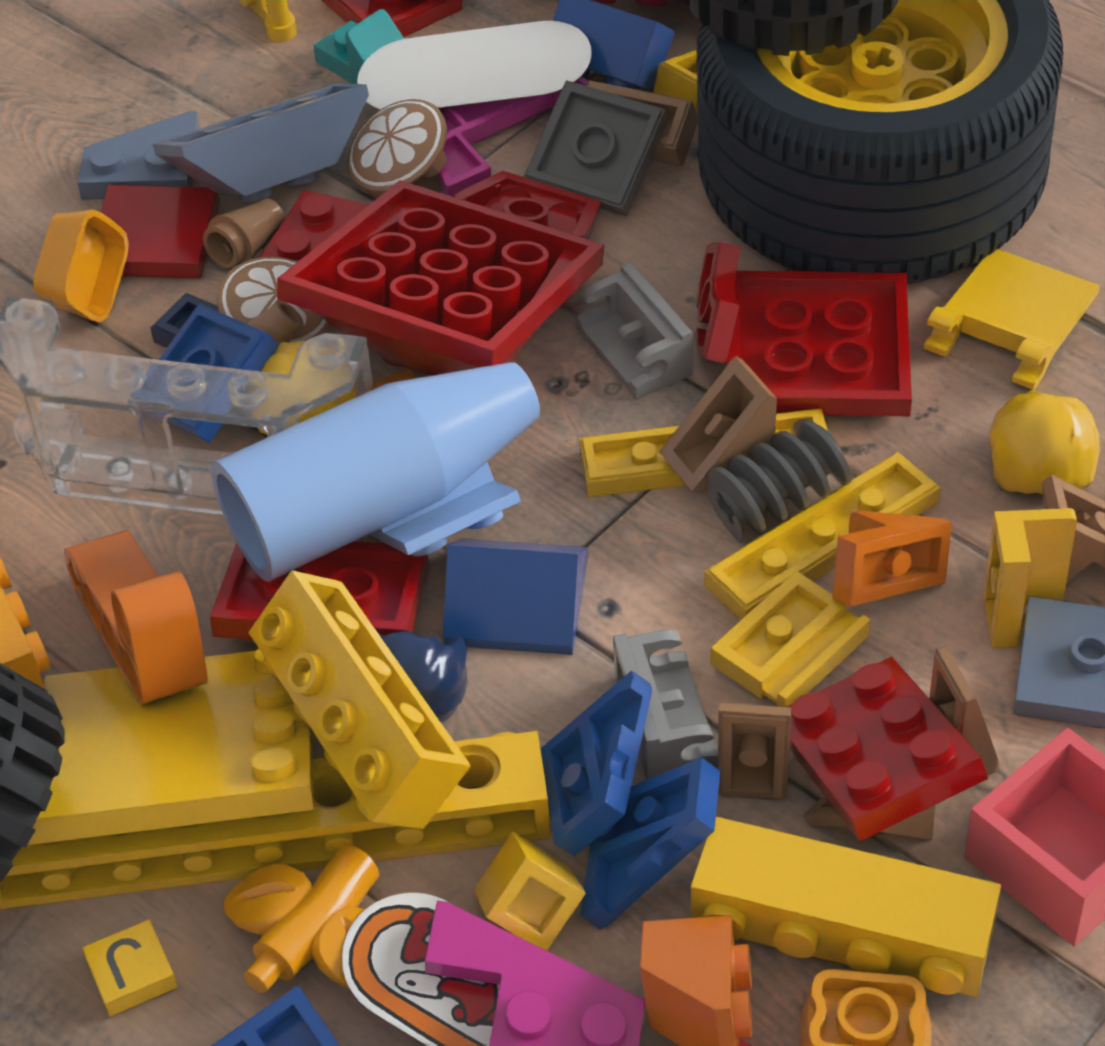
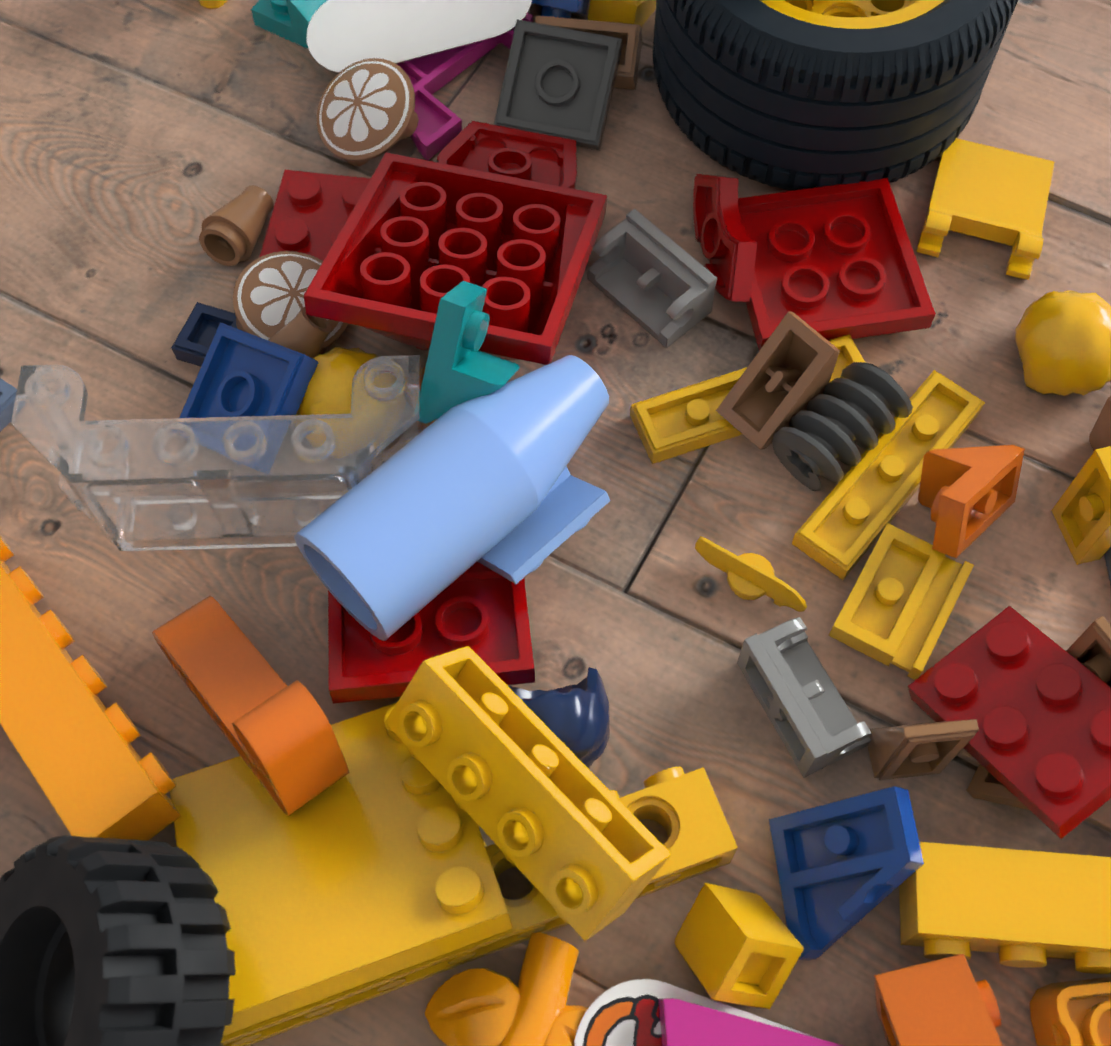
camera: 15 degrees left, 15 degrees up
(82, 263) = (83, 291): light orange piece -> none
(132, 160) = (113, 159): sand blue wing -> none
(162, 227) = (144, 236): red tile -> none
(269, 144) = (241, 127): sand blue wedge -> none
(398, 337) = (454, 364): none -> teal slope
(514, 595) = (620, 591): blue slope -> none
(594, 764) = (770, 793): blue wing -> none
(648, 601) = (750, 575): none -> yellow piece

